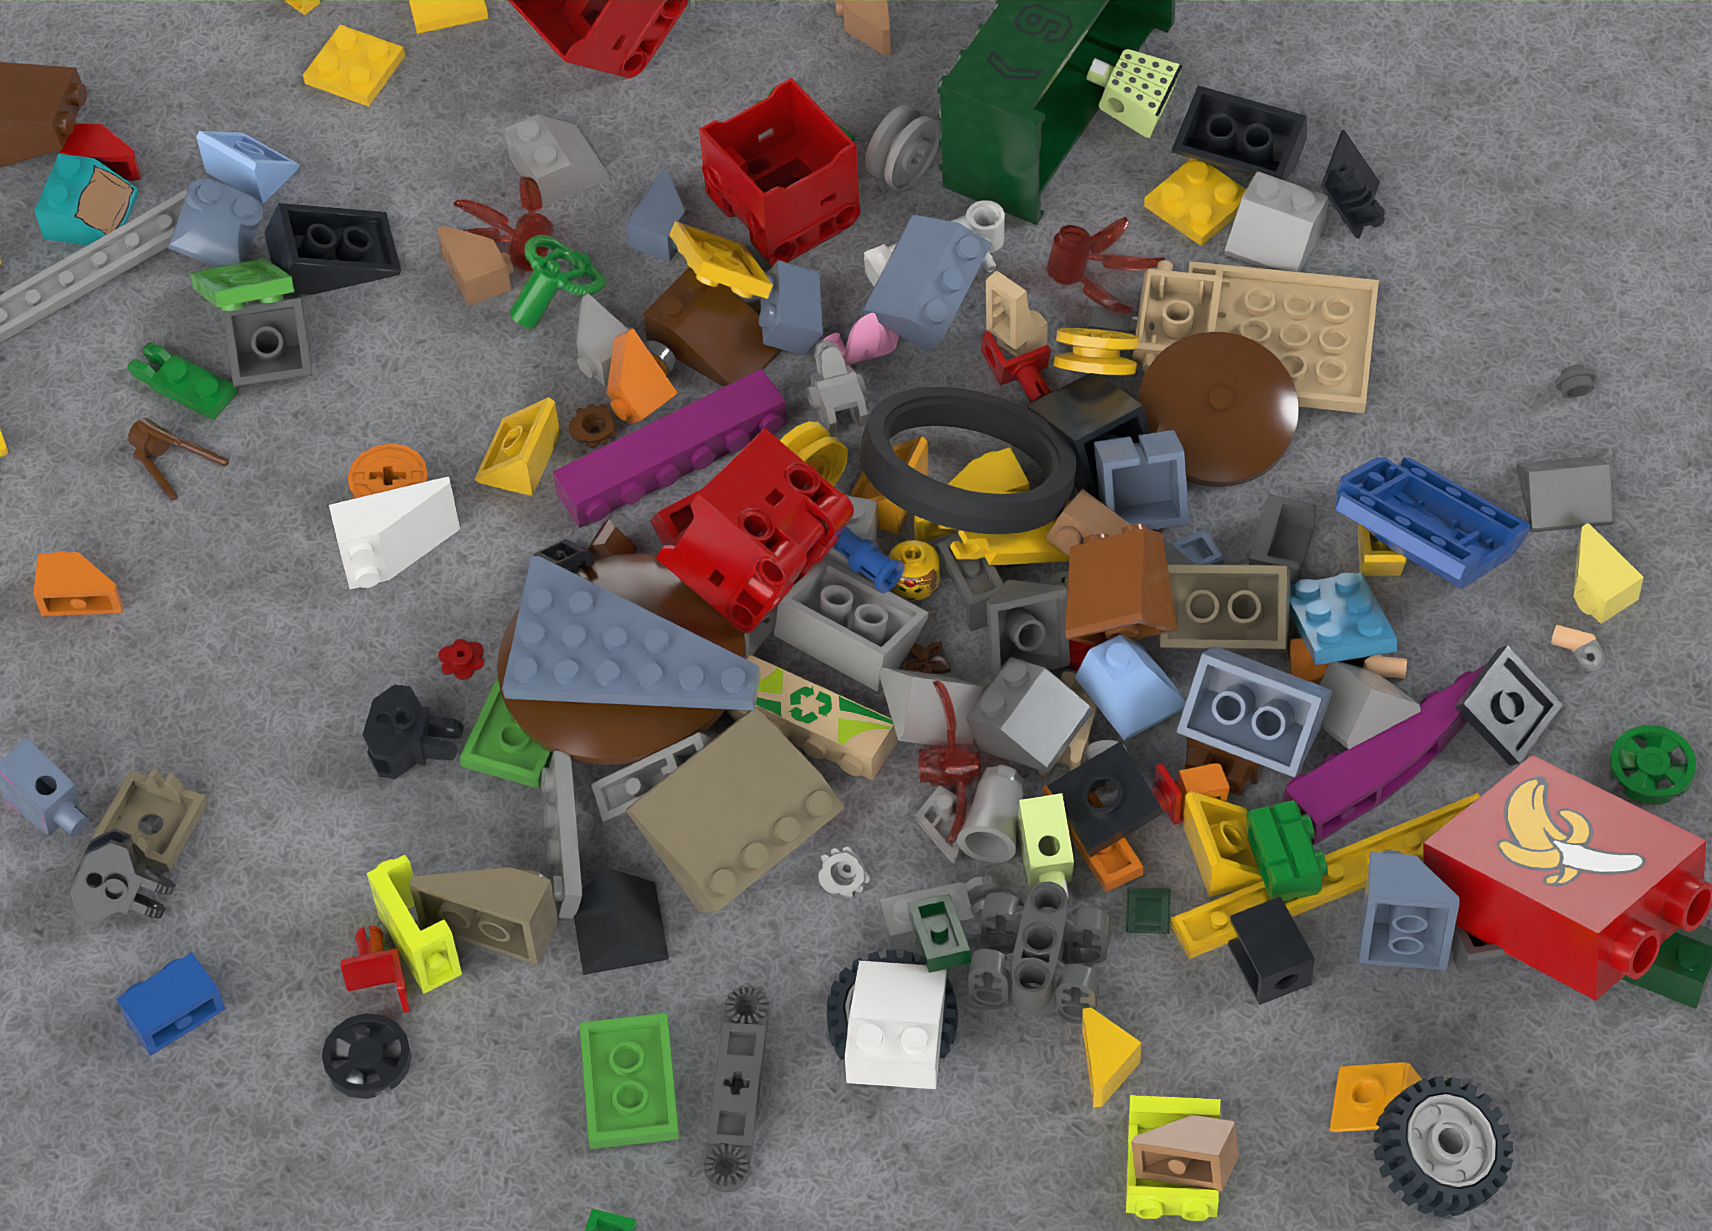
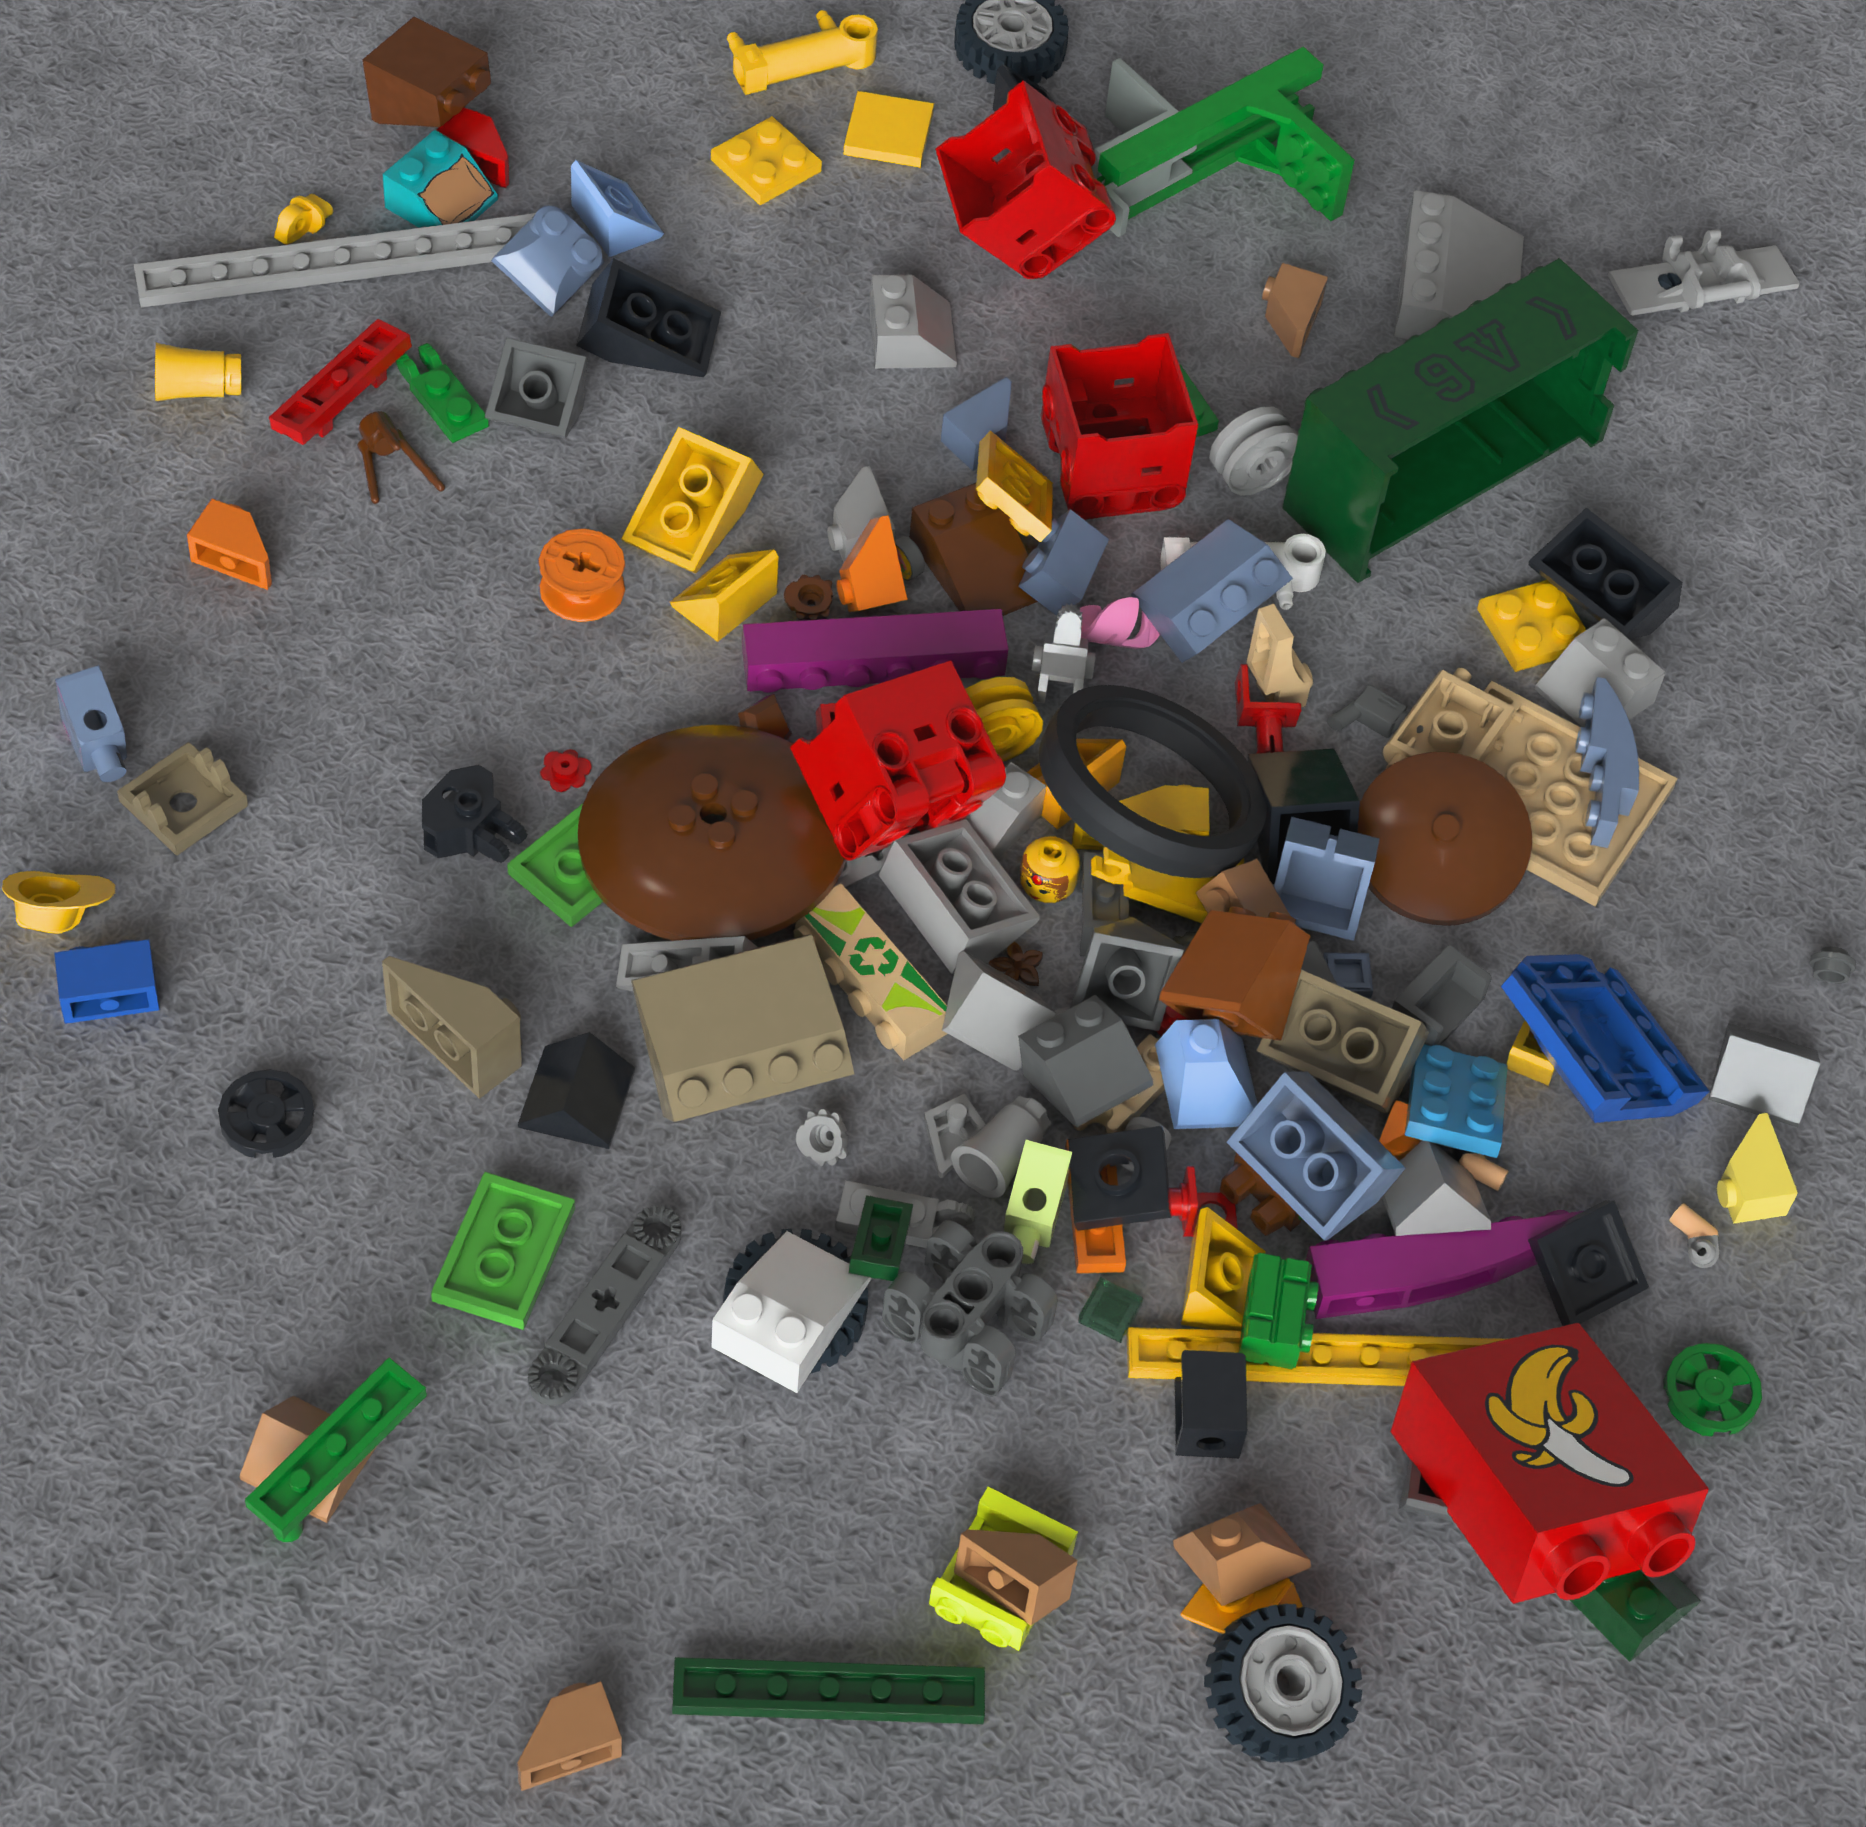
camera: 15 degrees right, 0 degrees up
(90, 954) = (53, 900): none -> yellow piece
(93, 407) = (340, 382): none -> red hinge
(111, 877) = (111, 836): hinge -> none
(242, 282) = (540, 320): bright green plate -> none
(374, 966) = (319, 1031): red bracket -> none
(392, 529) = (558, 615): white slope -> none
(428, 952) = (372, 1034): neon yellow panel -> none
(450, 385) = (692, 500): none -> yellow slope
(475, 264) = (779, 396): medium nougat slope -> none
(525, 228) = (841, 394): clear red plant -> none
(548, 278) = (837, 436): green piece -> none
(563, 847) = (559, 994): light grey plate -> none
(575, 554) = (707, 715): black tile -> none
(600, 648) = (694, 814): sand blue wing -> none
(866, 558) = (1004, 837): blue pin -> none
(950, 763) = (983, 1074): clear red plant -> none
(1071, 254) = (1375, 621): clear red plant -> none
(1096, 351) = (1345, 729): yellow wheel -> none
(1109, 1055) = (992, 1438): yellow slope -> none
(1135, 88) = (1526, 488): yellowish green torso -> none
(1205, 780) = (1230, 1203): orange slope -> none
(1322, 285) = (1610, 757): none -> sand blue slope
(1352, 187) = (1697, 673): black hinge -> none
(1355, 1059) = (1241, 1554): none -> medium nougat slope
(1406, 914) = (1362, 1426): sand blue slope -> none

